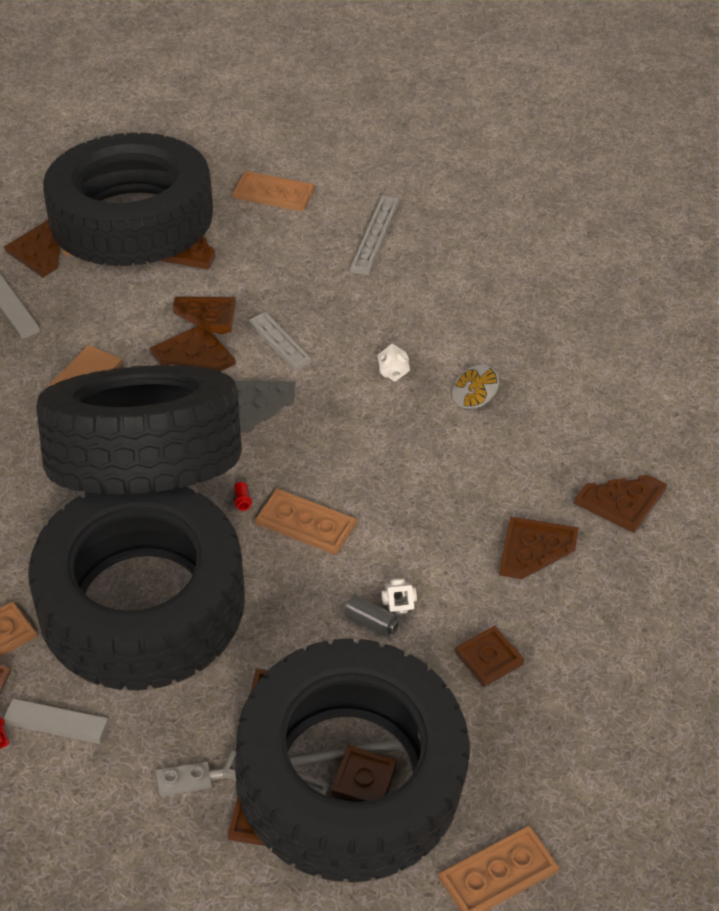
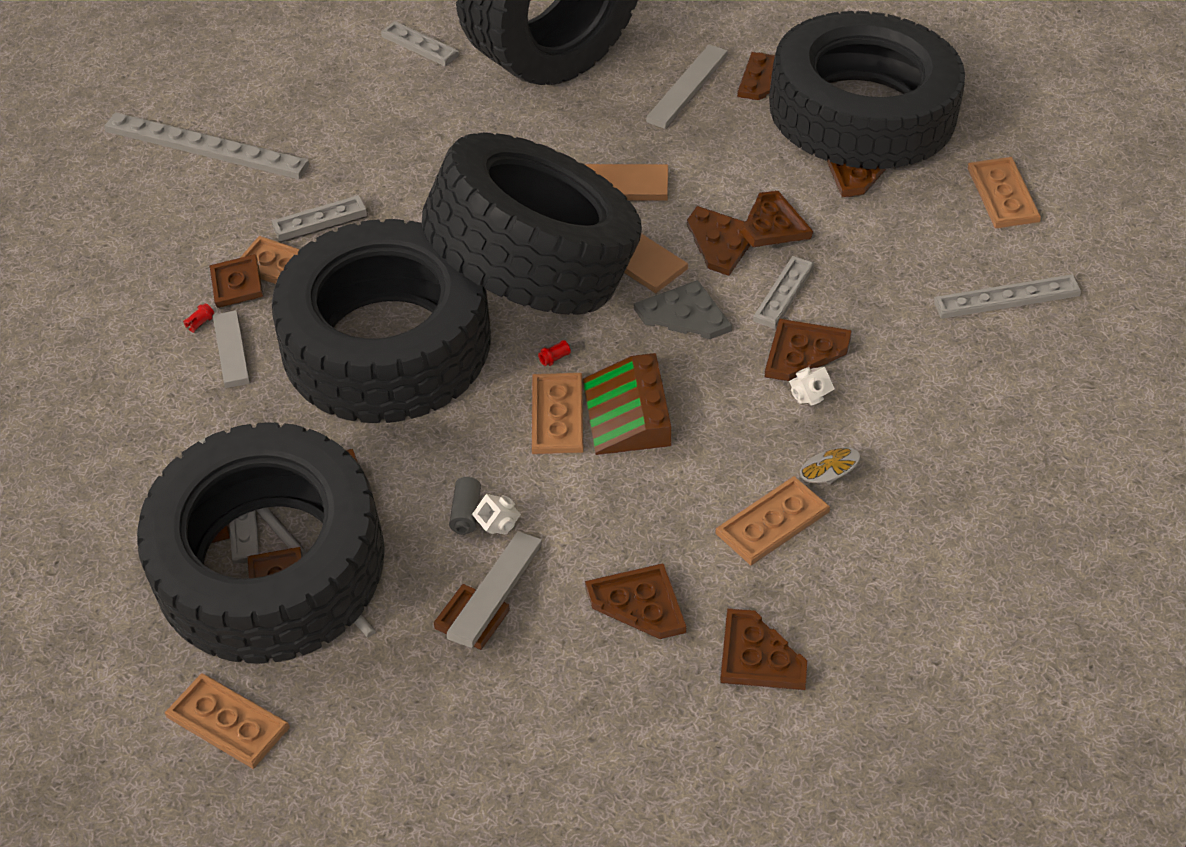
camera: 65 degrees right, 0 degrees up
(335, 472) = (628, 406): none -> reddish brown slope
(347, 354) = (804, 346): none -> reddish brown plate
(478, 627) = (494, 589): none -> light grey tile
(501, 442) = (772, 520): none -> medium nougat tile

